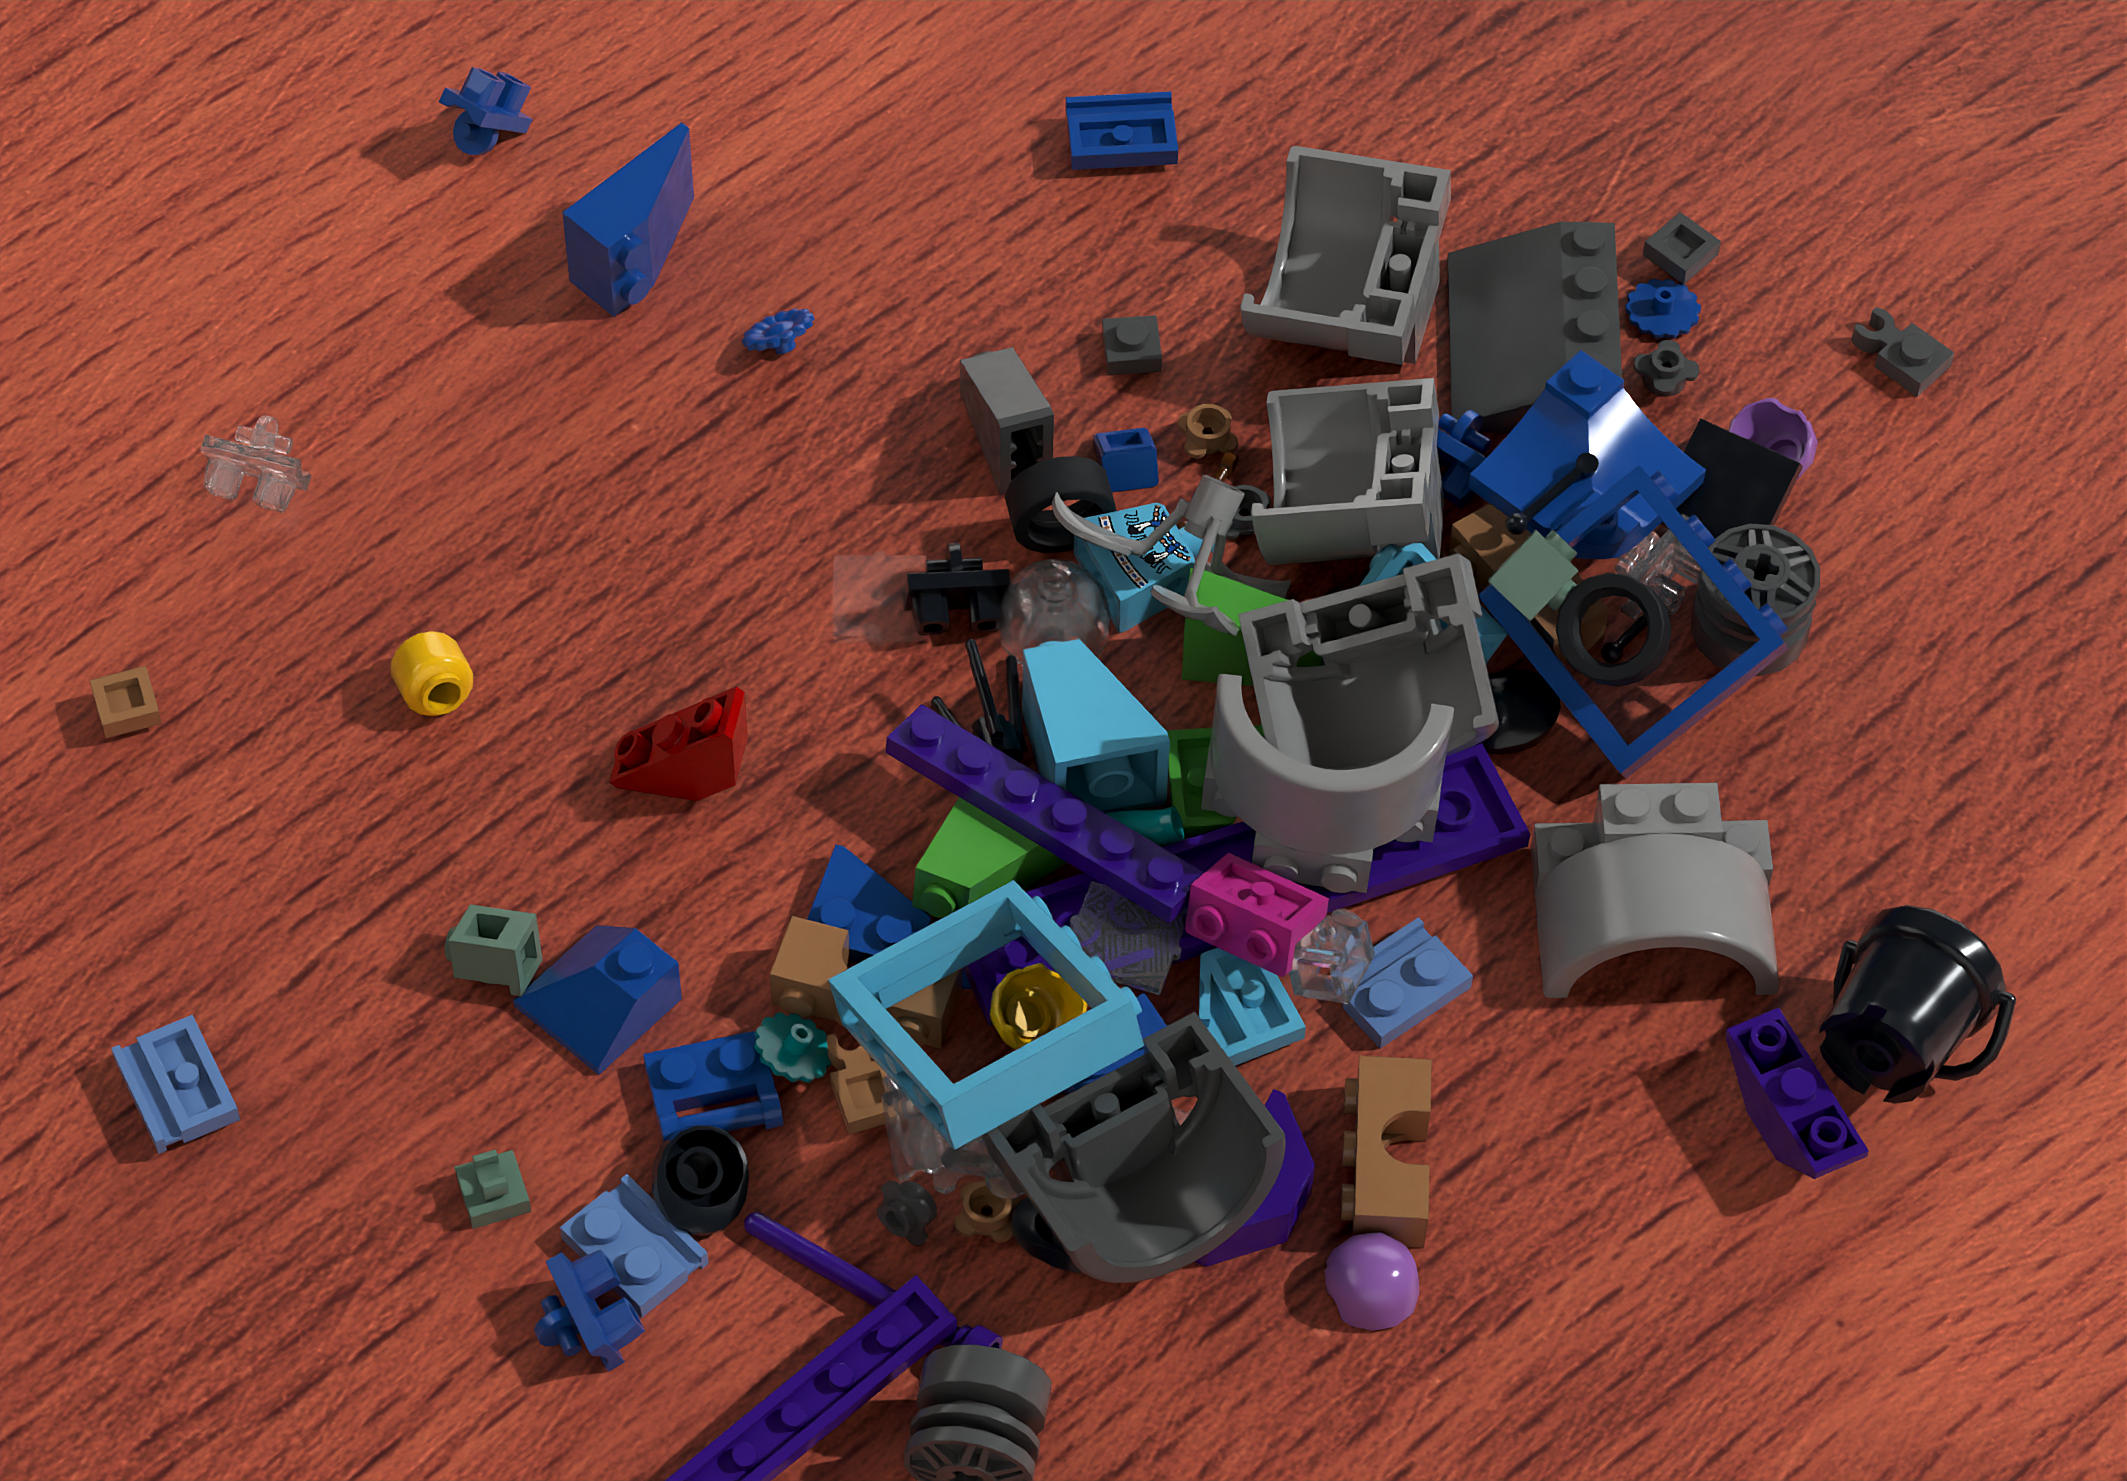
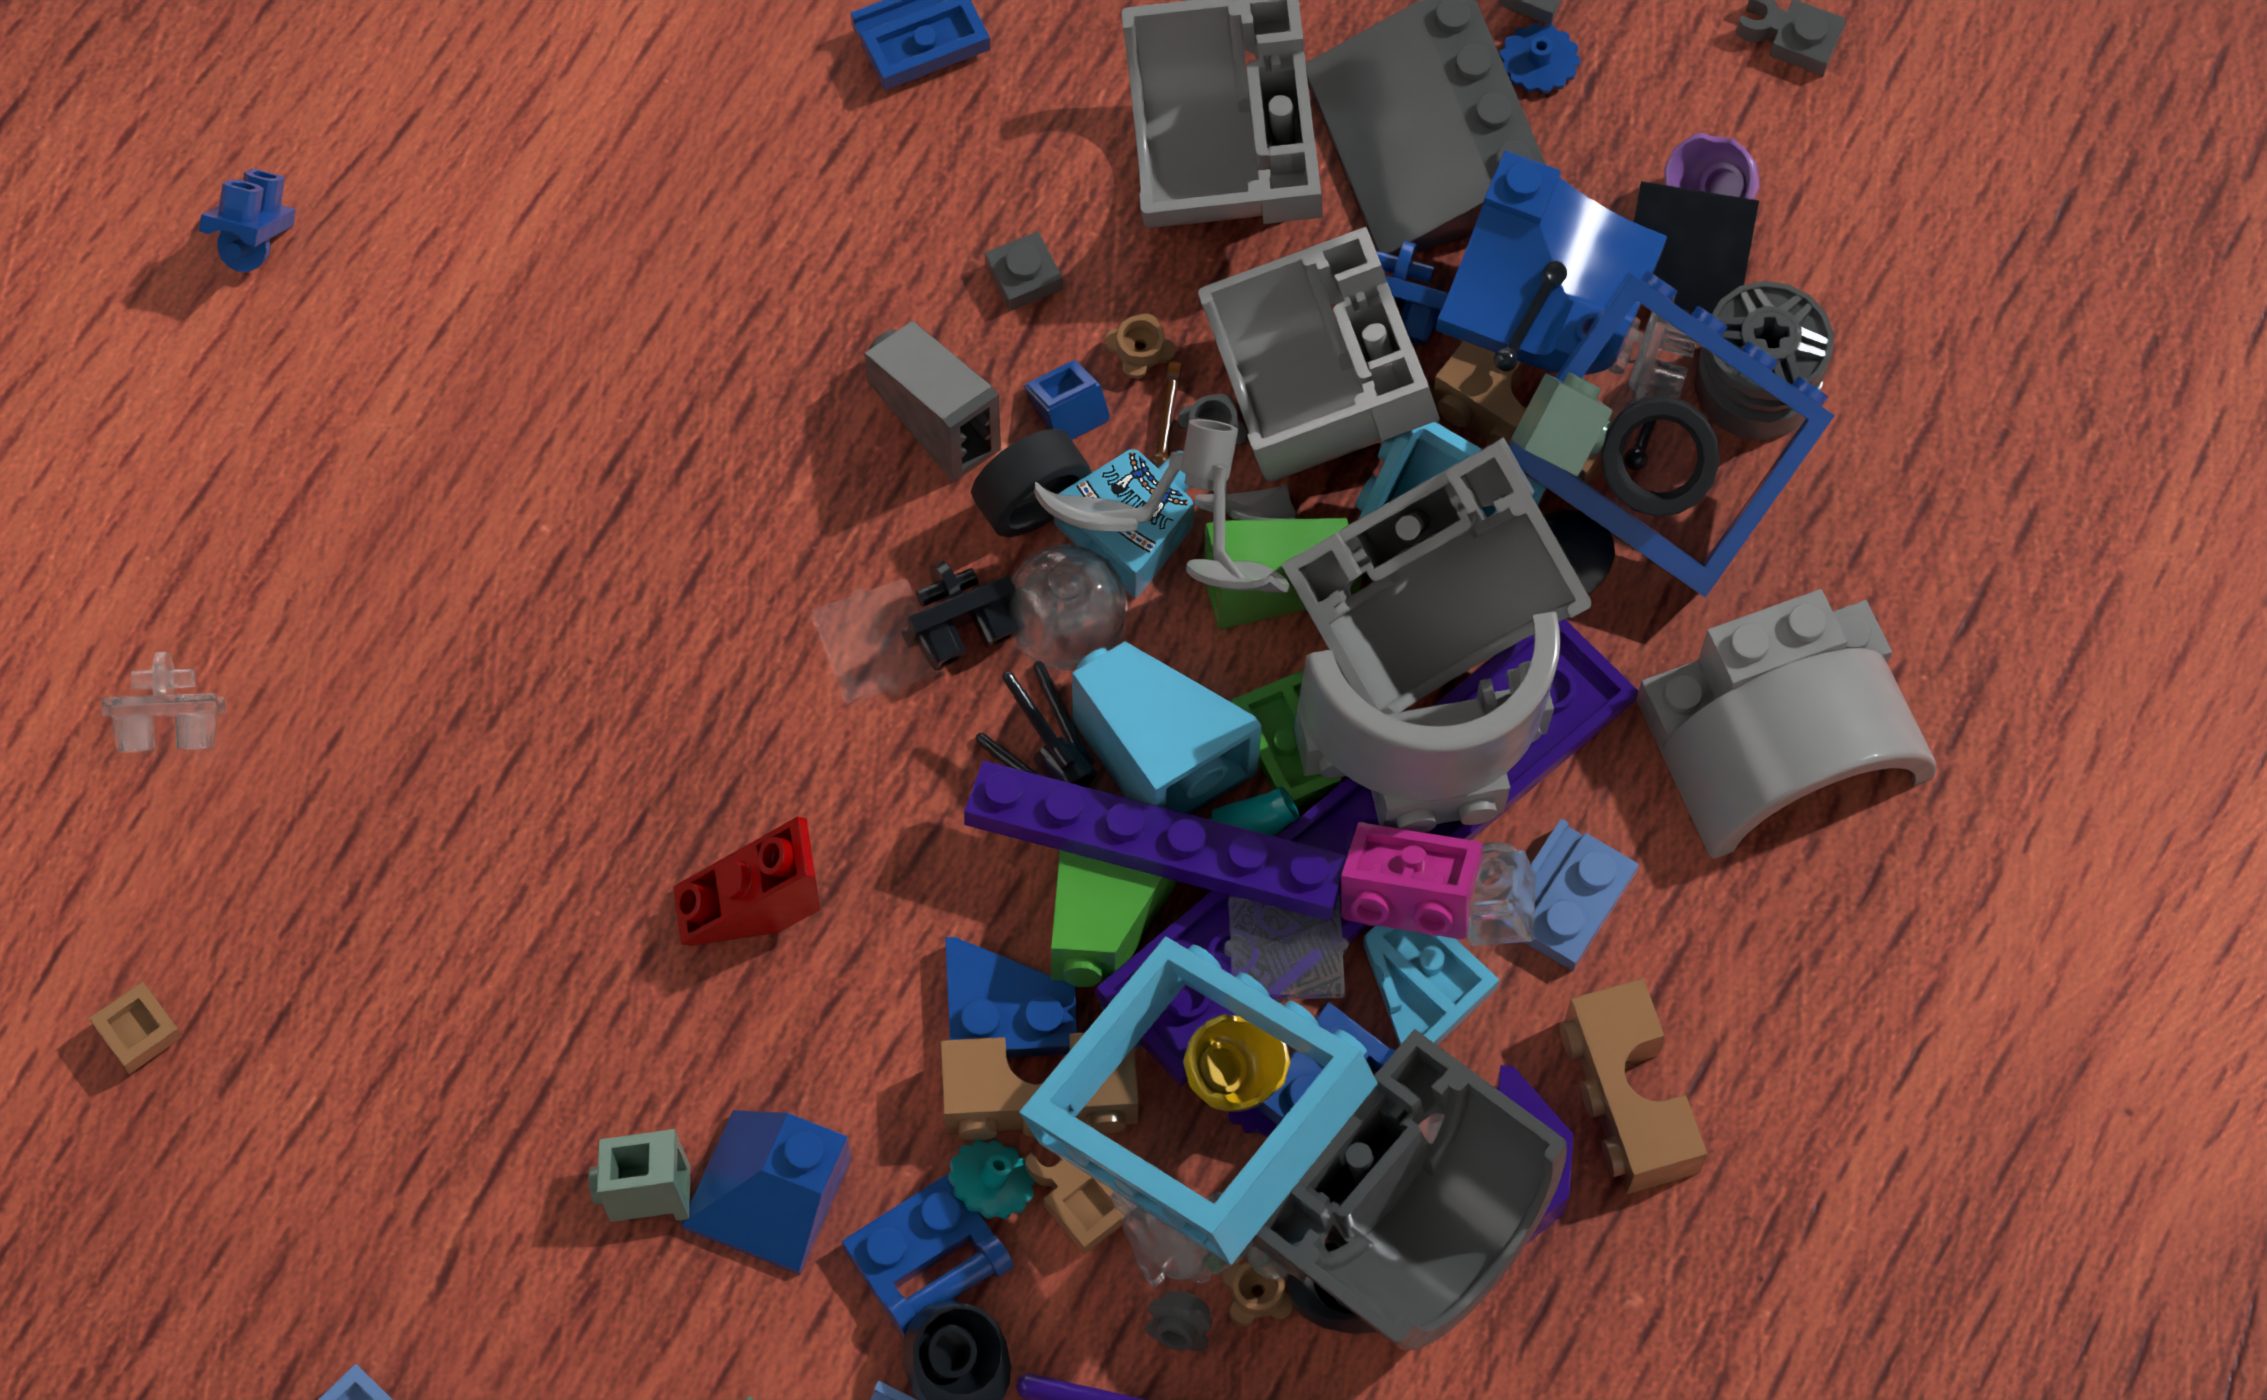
camera: 20 degrees left, 10 degrees up
(431, 673) = (450, 888): yellow head -> none
(629, 223) = (453, 314): blue slope -> none
(778, 331) = (655, 373): blue piece -> none
(1372, 1281) = (1667, 1231): medium lavender hair -> none
(1665, 380) = (1569, 140): dark grey plate -> none
(1791, 1098) = (2006, 898): dark purple slope -> none
(1911, 1002) = (2088, 759): black piece -> none

